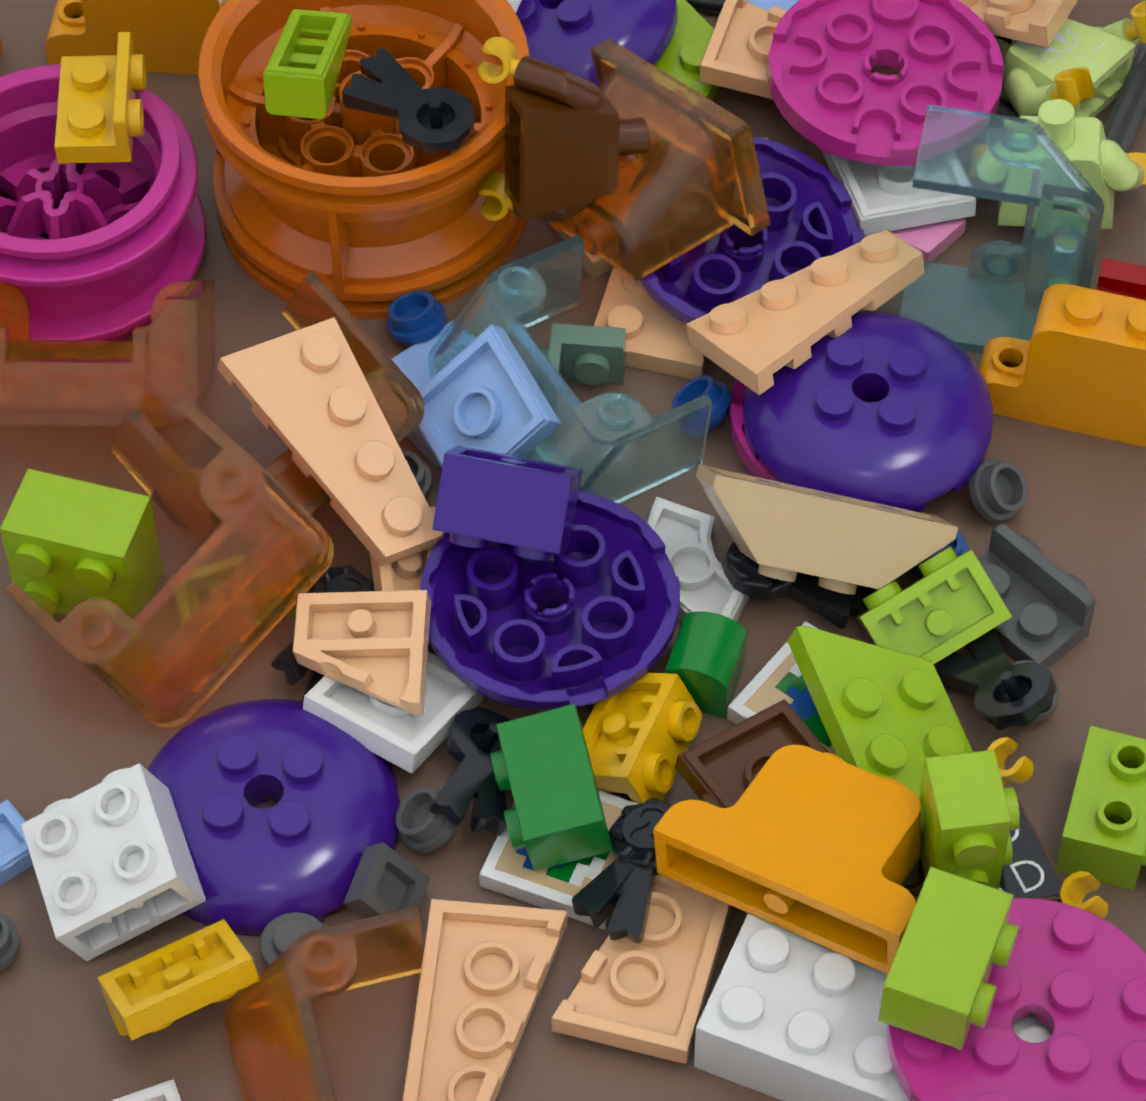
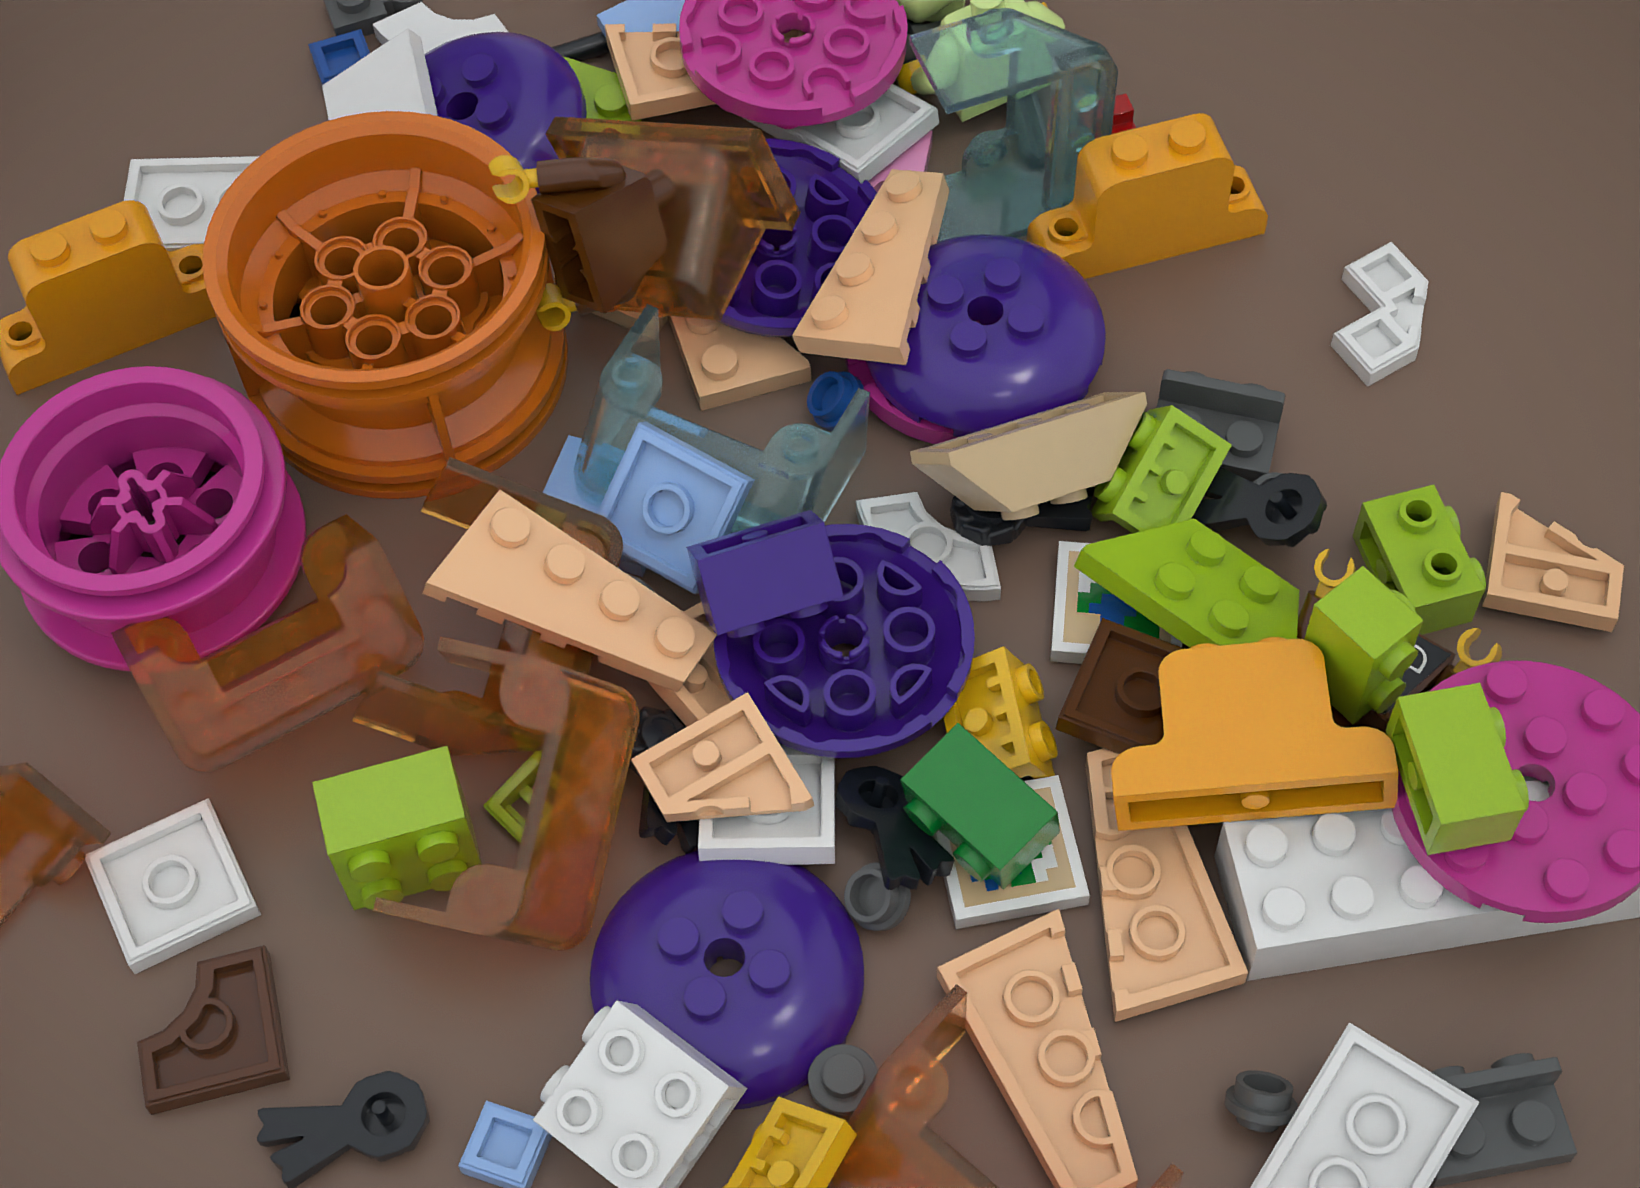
camera: 30 degrees left, 5 degrees up
(99, 105) = (144, 405): yellow bracket -> none
(305, 70) = (328, 269): lime slope -> none
(384, 883) = (891, 982): dark grey plate -> none
(415, 318) = (534, 453): blue plate -> none
(427, 117) = (478, 261): black piece -> none
(588, 353) = (714, 402): sand green bracket -> none
(630, 878) = (1086, 817): black piece -> none
(709, 659) = (1009, 616): green piece -> none
(997, 490) = (1129, 344): dark grey plate -> none

